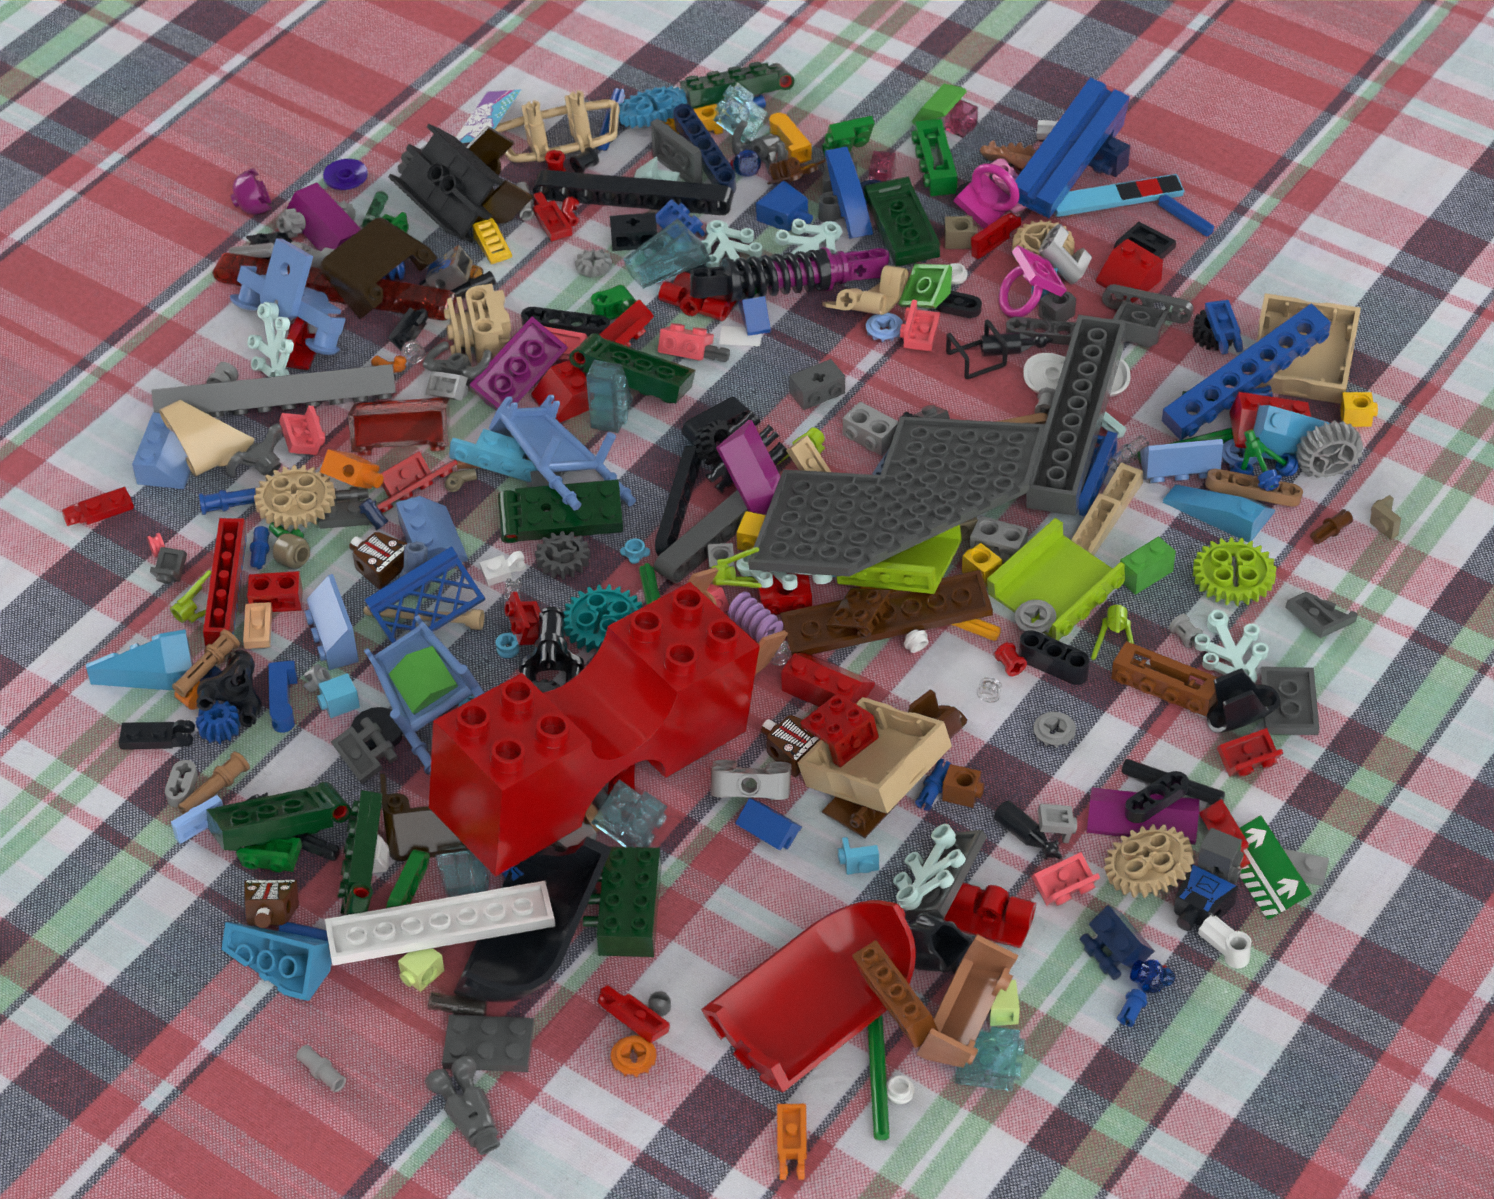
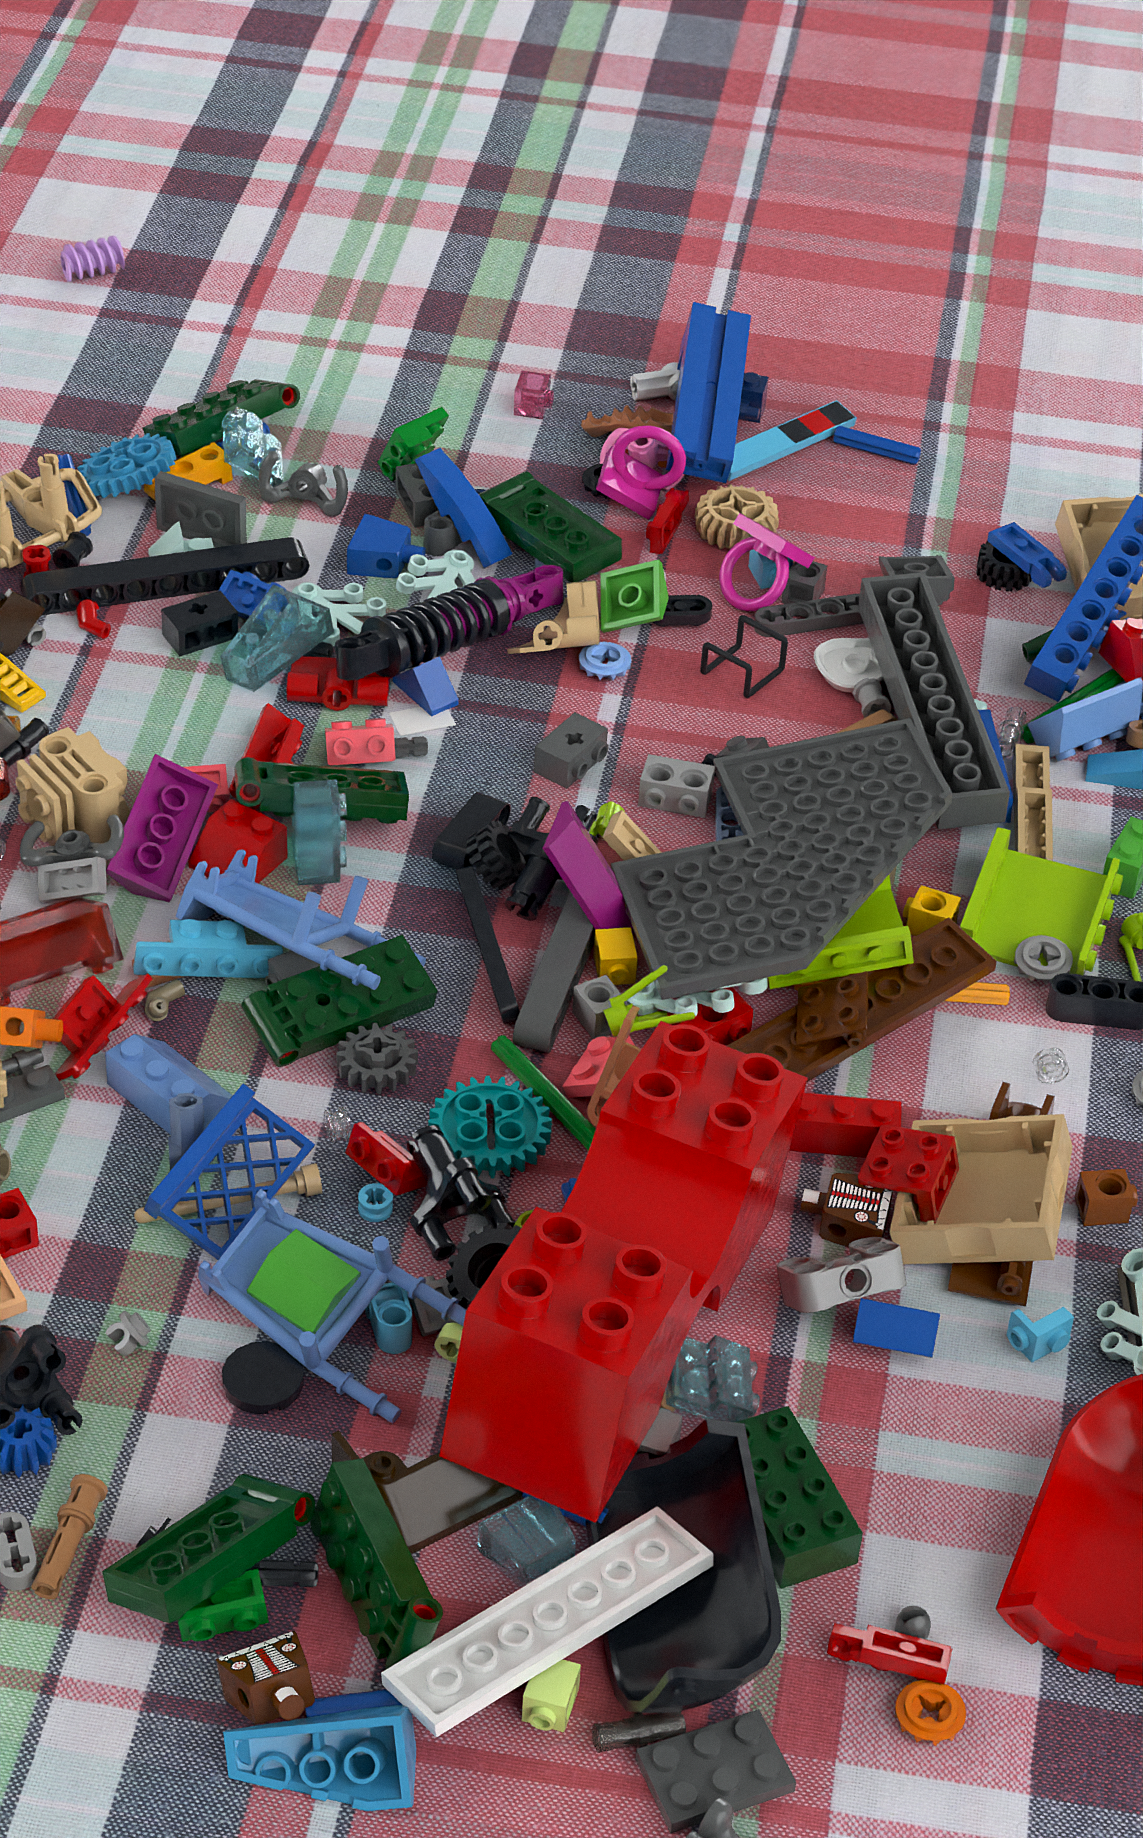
camera: 30 degrees left, 5 degrees down
(194, 820) = (77, 1595): light blue plate -> none
(280, 677) = (103, 1394): blue leg -> none
(331, 625) = (113, 1246): medium blue slope -> none
(338, 696) = (180, 1346): medium azure brick -> none
(356, 753) = (265, 1421): dark grey plate -> none
(373, 513) = (72, 1079): dark blue pin -> none
(378, 558) = (117, 1137): torso -> none
(409, 879) = (453, 1576): green beam -> none
(498, 569) = (299, 1104): white plate -> none
(551, 218) = (75, 634): red hinge -> none
(566, 319) = (178, 754): black beam -> none
(601, 267) = (157, 682): light grey gear -> none
(612, 301) = (230, 720): green piece -> none
(634, 550) = (469, 1025): medium azure plate -> none
(712, 160) = (263, 517): dark blue beam -> none
(746, 163) = (293, 507): clear blue animal -> none
(790, 170) = (363, 498): reddish brown hinge -> none
(794, 140) = (312, 450): light orange leg -> none
(882, 166) = (476, 468): clear pink brick -> none
(916, 640) = (916, 1032): white plate -> none
(919, 328) = (653, 650): coral bracket -> none
(926, 136) = (532, 445): green brick -> none
(933, 785) = (1070, 1214): blue pin -> none
(940, 103) = (497, 382): bright green slope -> none
(958, 232) = (626, 522): dark tan brick -> none
(999, 537) = (936, 870): light grey brick -> none
(1010, 659) = (1048, 1019): red bush -> none
(1016, 343) = (761, 647): black wheel -> none
(1068, 266) = (764, 509): light grey connector -> none
(1131, 267) = (862, 521): red slope -> none
(1149, 239) = (856, 482): black plate -> none
(1149, 299) = (909, 547): dark grey beam -> none

